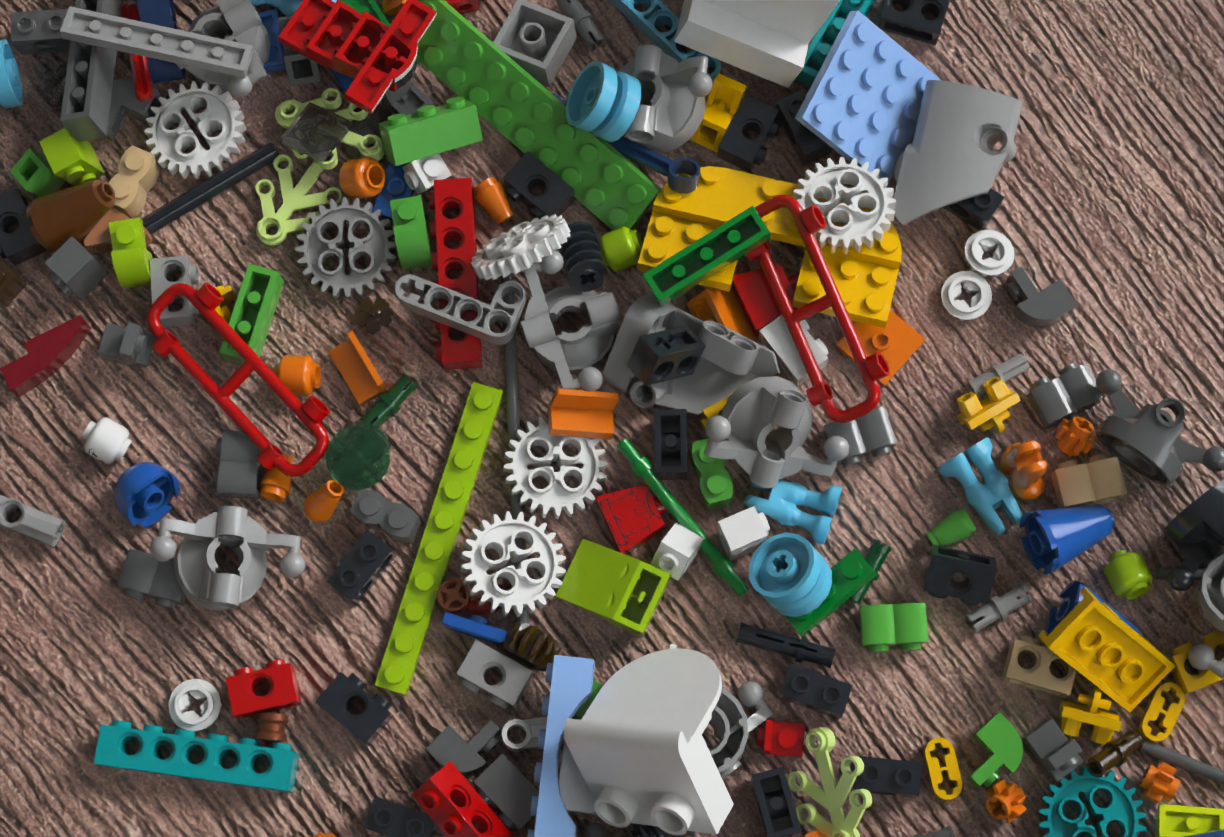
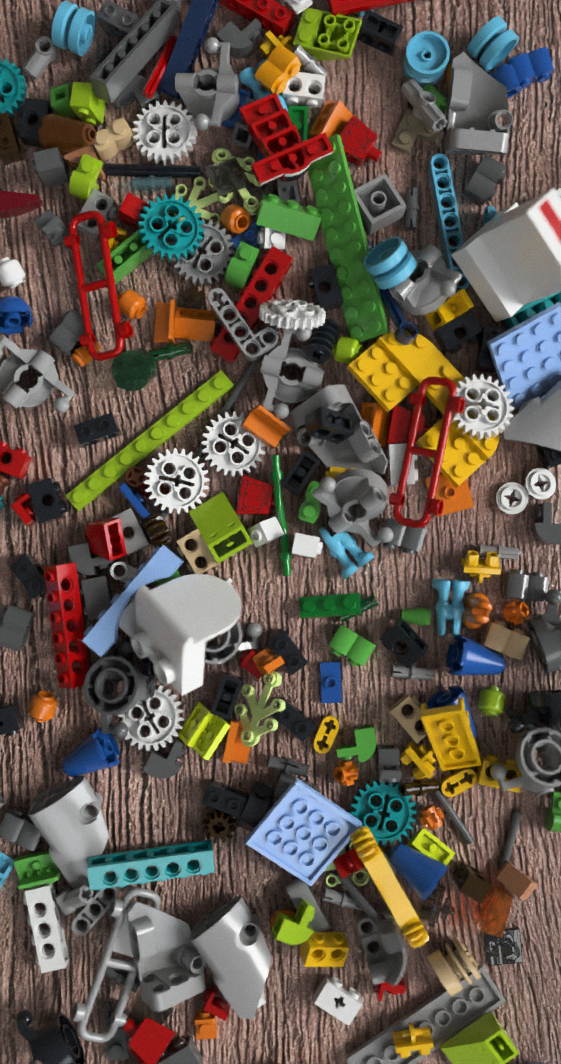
camera: 30 degrees right, 10 degrees up
(156, 42) = (170, 66): light grey plate -> none
(221, 204) = (152, 183): none -> clear light blue pin
(224, 252) = (131, 210): none -> red torso
(260, 234) = (158, 214): none -> teal gear
(322, 502) = (100, 381): orange cone -> none
(336, 744) = (23, 512): none -> red bracket
(378, 514) = (126, 407): dark grey brick -> none
(398, 346) = (194, 324): none -> orange panel
(470, 701) = (106, 538): none -> red torso
(494, 200) = (297, 277): orange cone -> none
(608, 634) = (200, 550): none -> tan brick
(707, 256) = (386, 386): green brick -> none
(786, 645) = (305, 636): black pin -> none
(790, 574) = (315, 584): medium azure wheel -> none
(796, 720) = (266, 661): none -> orange bracket
(900, 695) = (330, 682): none -> blue plate

